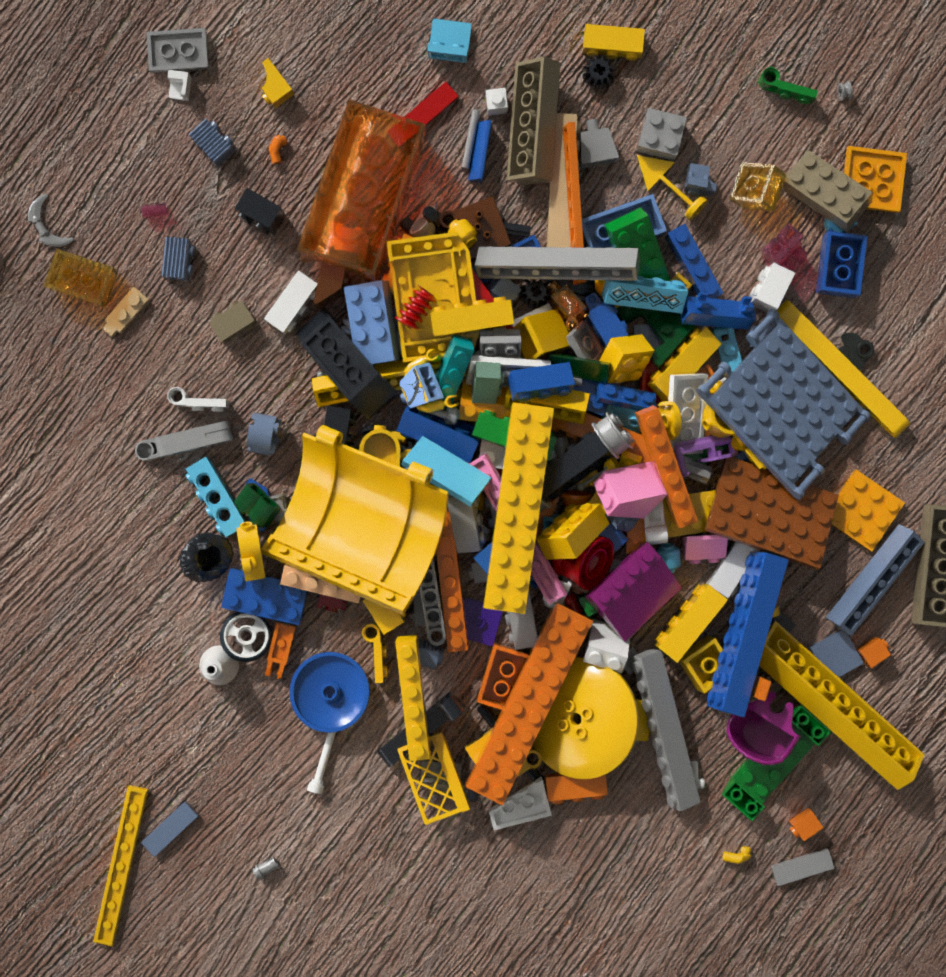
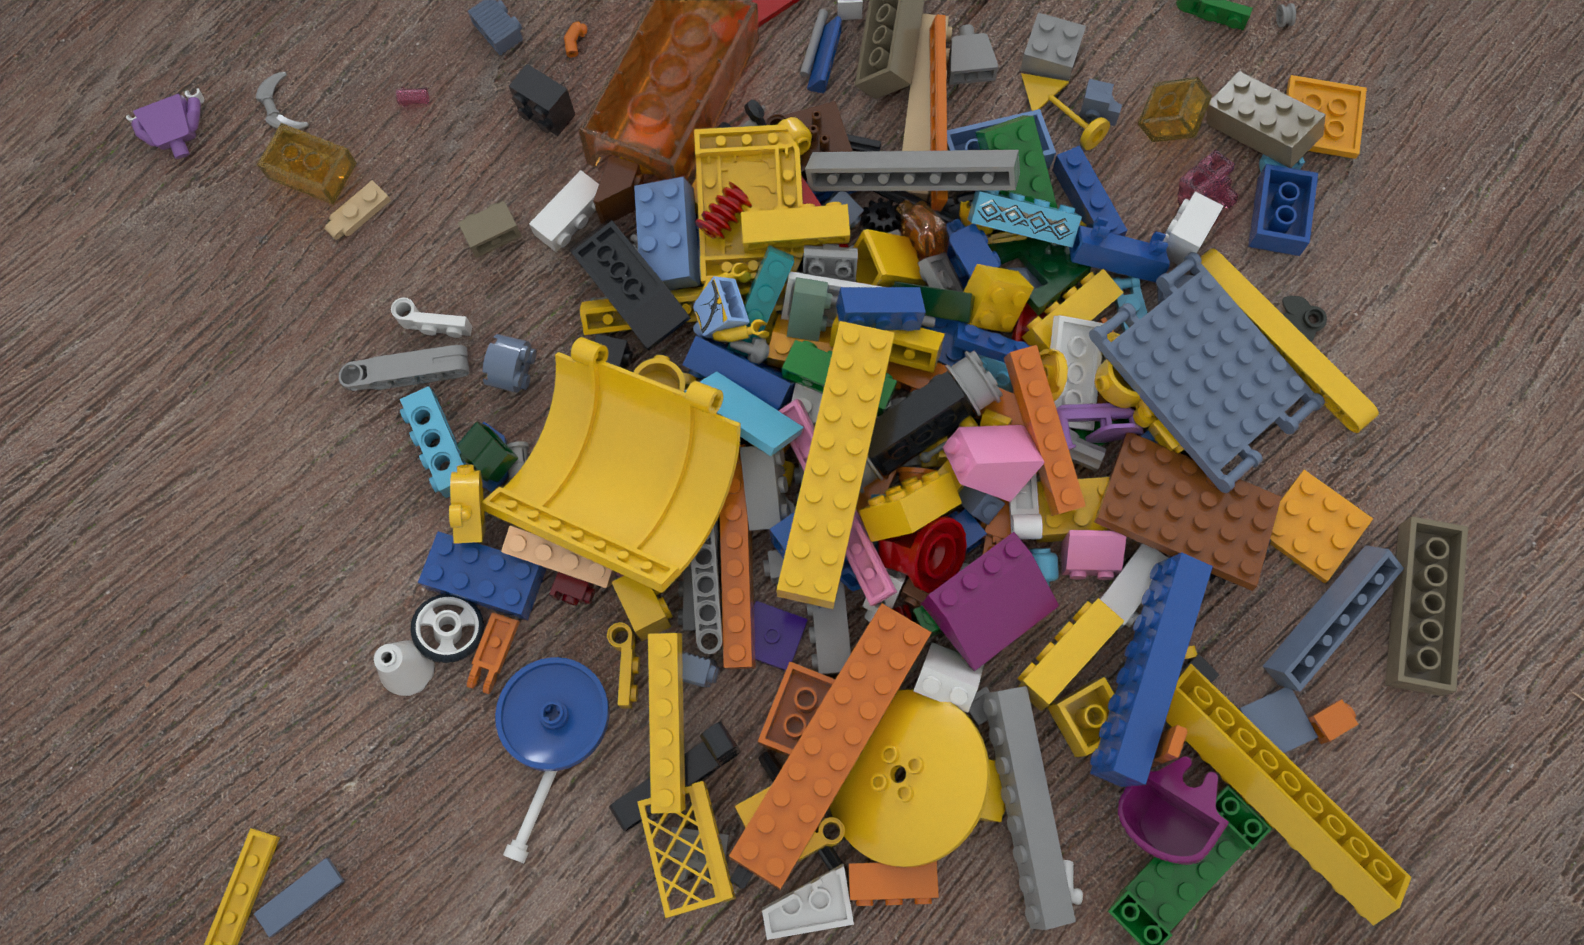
camera: 10 degrees right, 15 degrees down
(177, 259) = (432, 151): sand blue brick -> none
(206, 557) = (409, 517): black piece -> none

